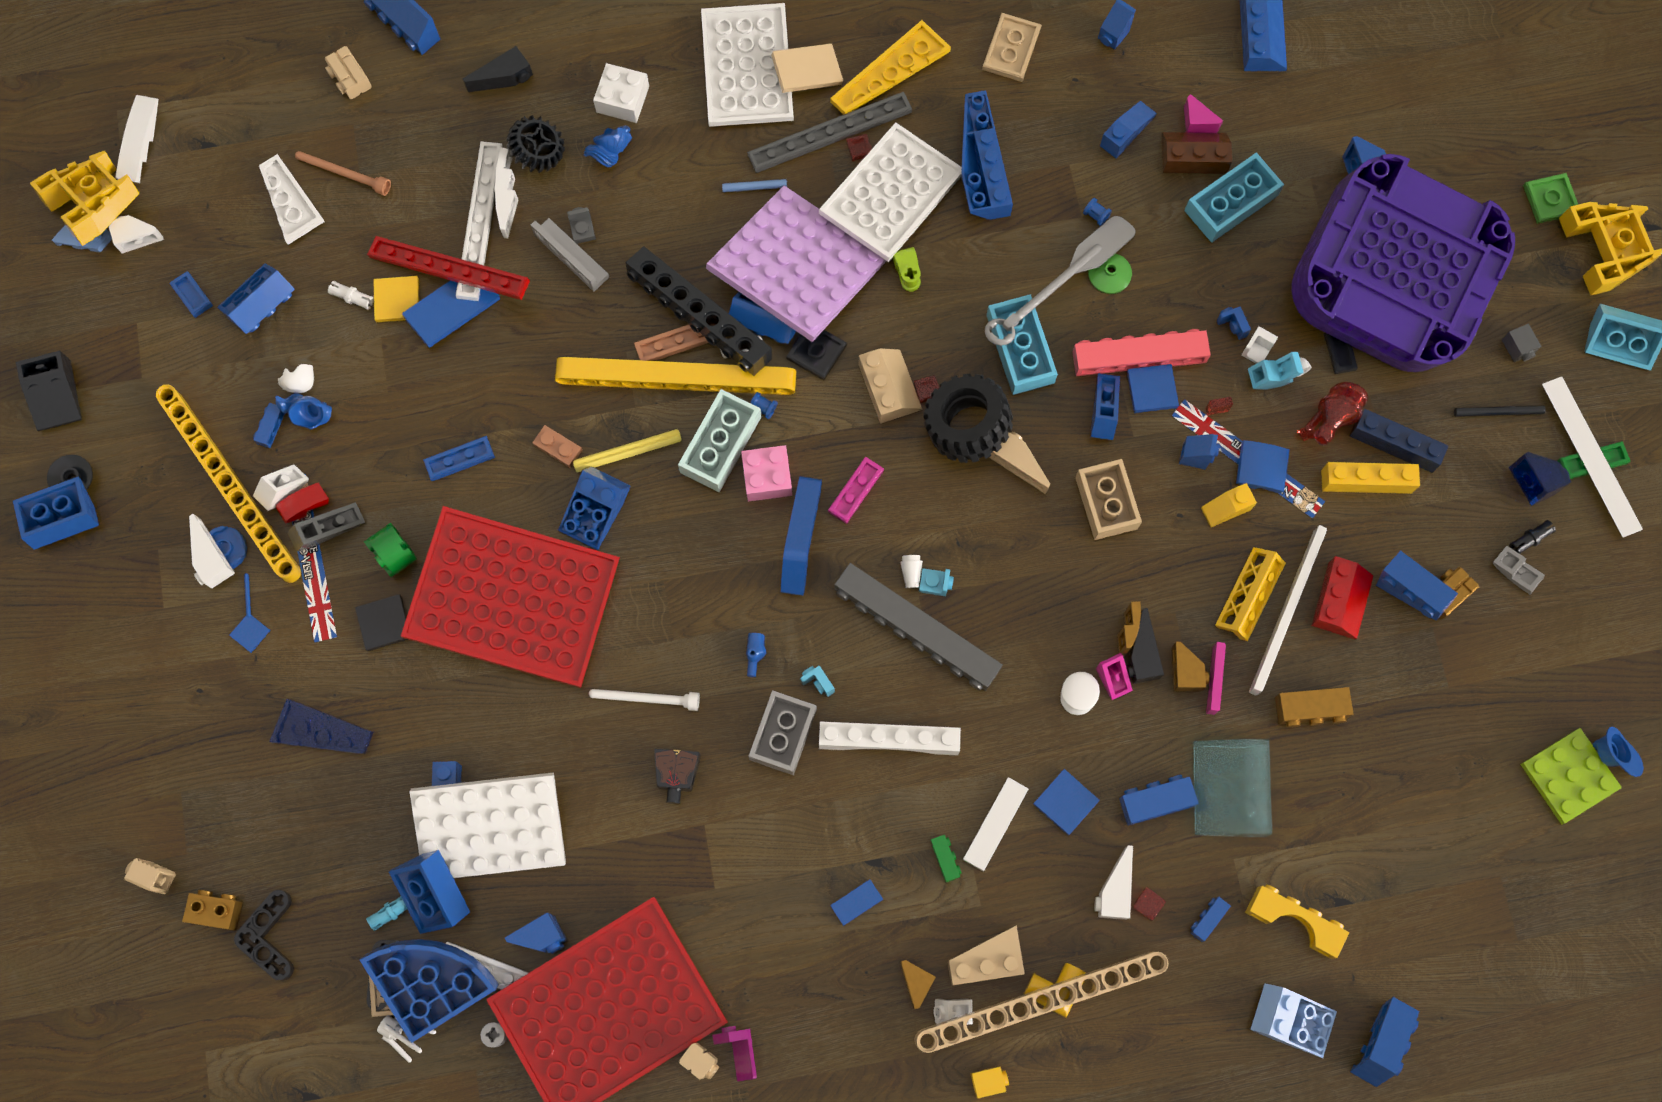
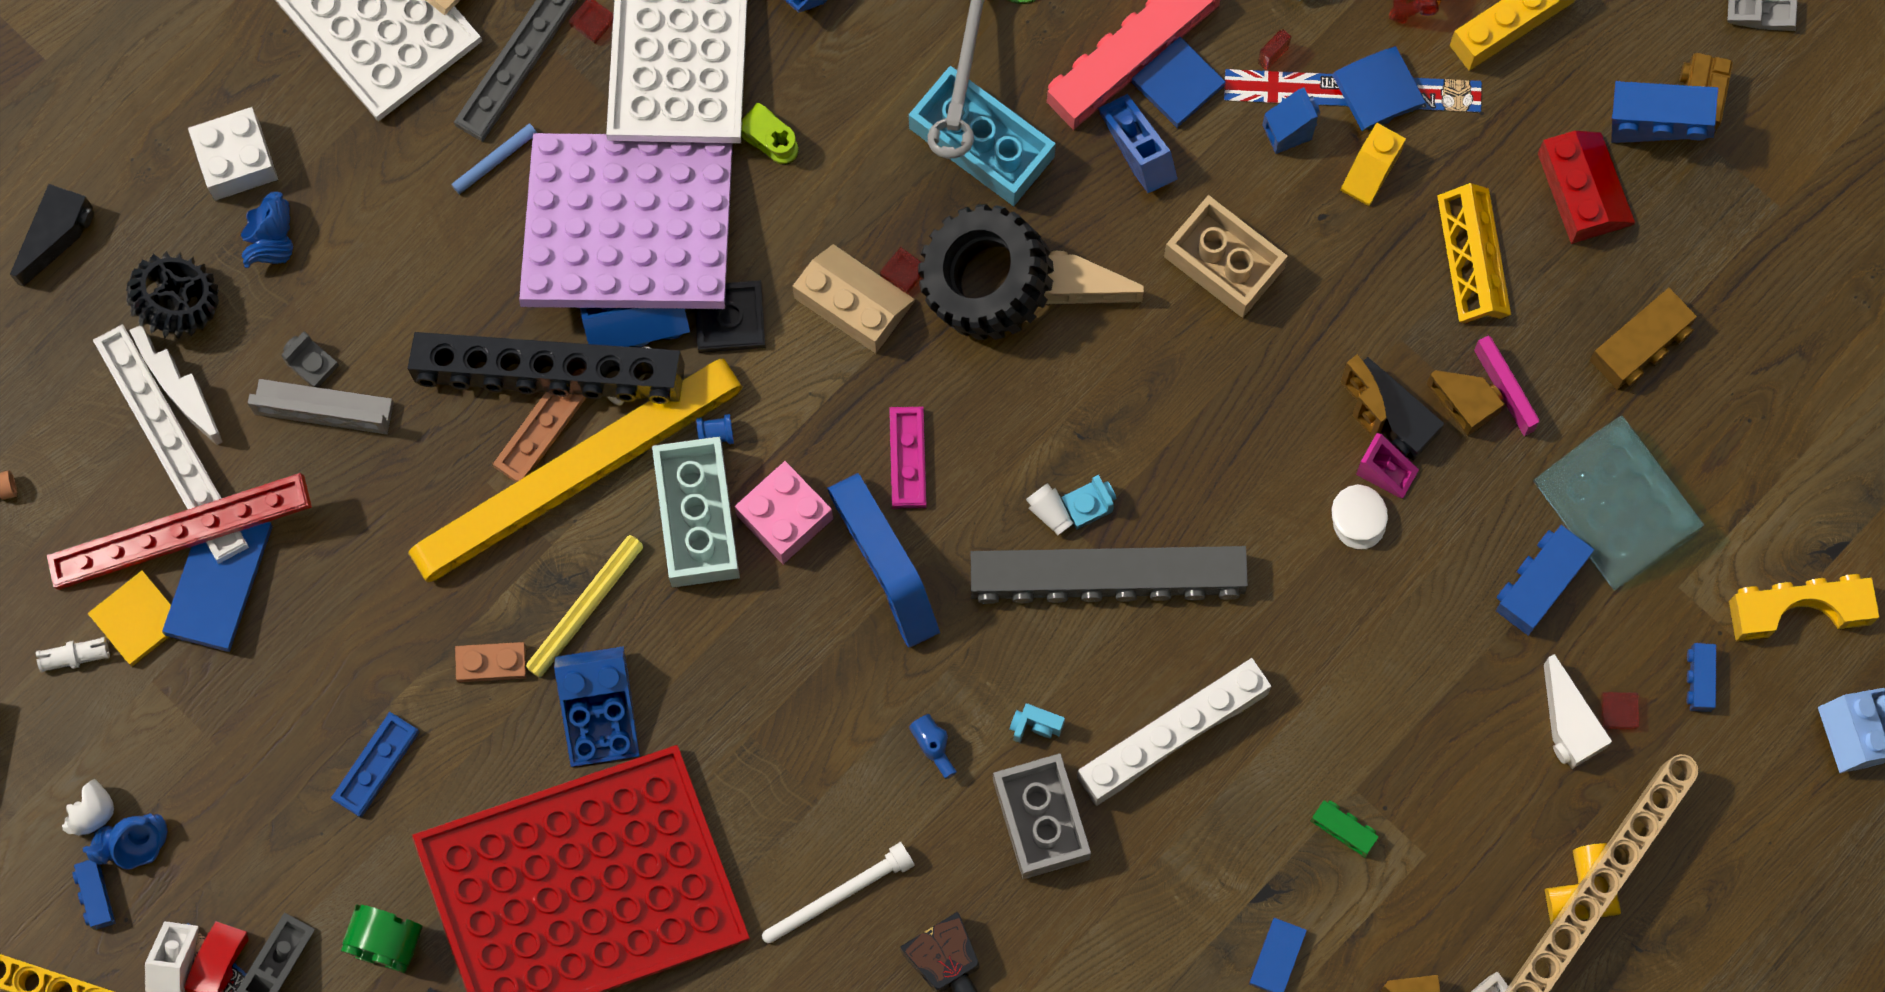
camera: 35 degrees left, 0 degrees up
(989, 961) = (1486, 908): tan wedge -> none
(995, 824) = (1373, 745): white tile -> none
(1066, 802) = (1437, 659): blue tile -> none
(1287, 611) = (1532, 244): white tile -> none

